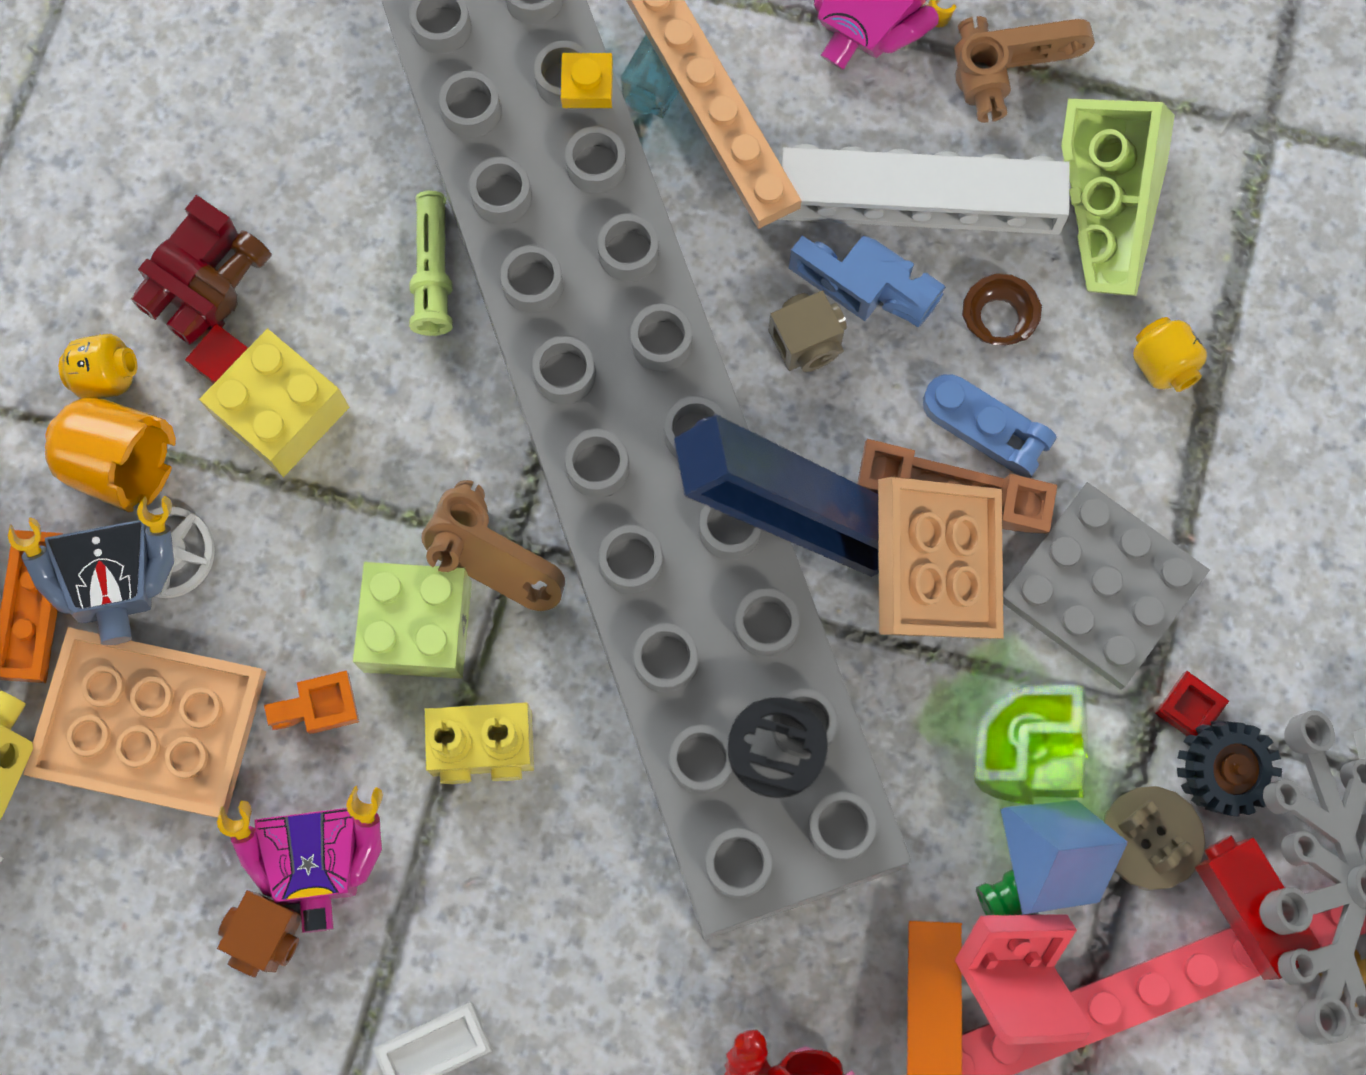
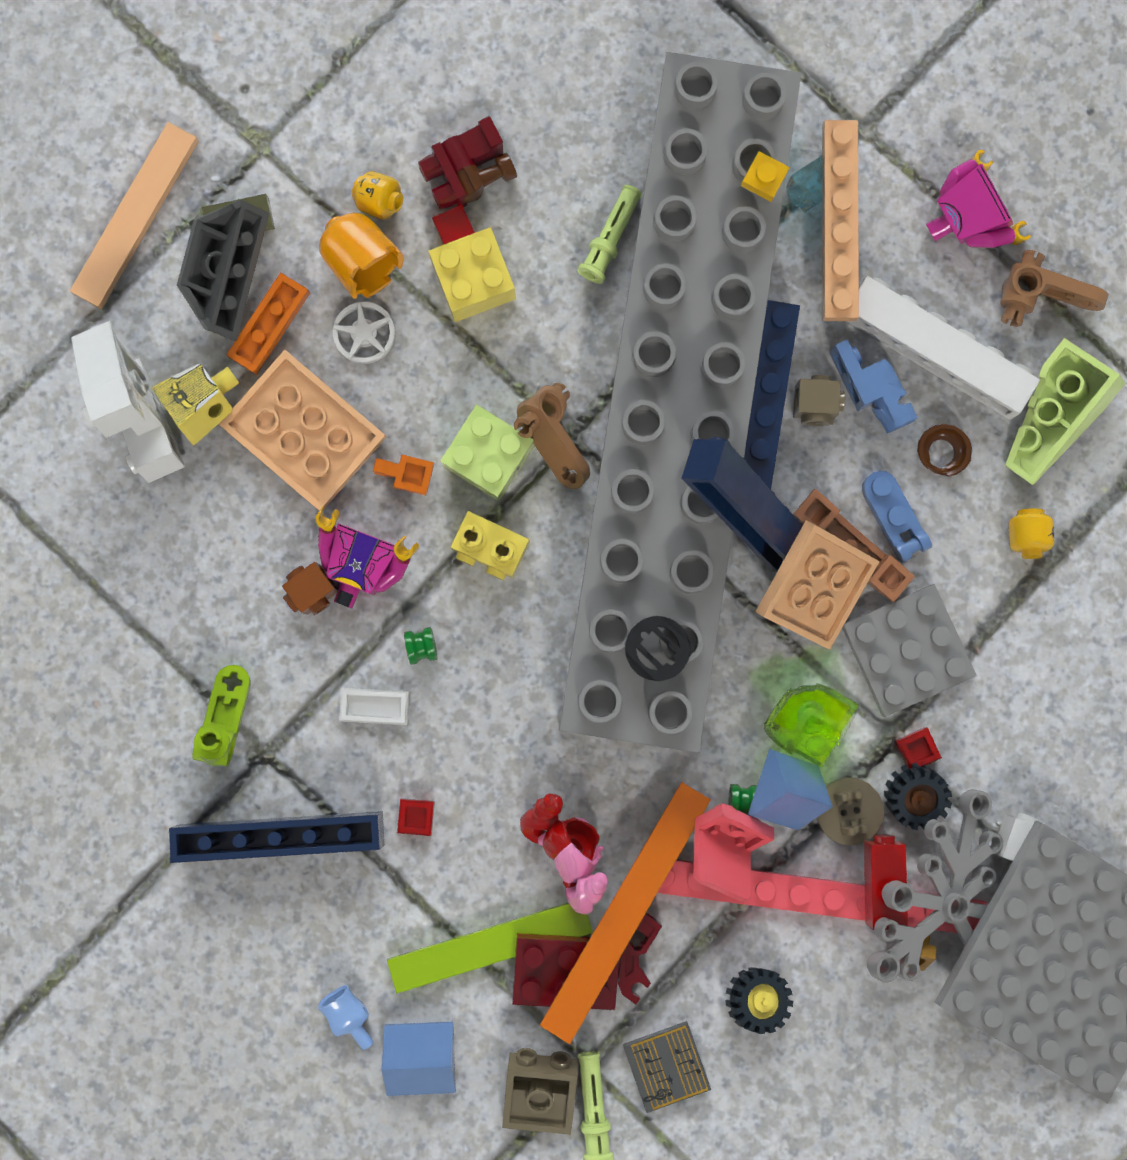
camera: 25 degrees right, 10 degrees up
(102, 570) = (321, 327): torso -> none
(454, 928) = (420, 645): none -> green wheel
(738, 337) = (771, 388): none -> dark blue brick

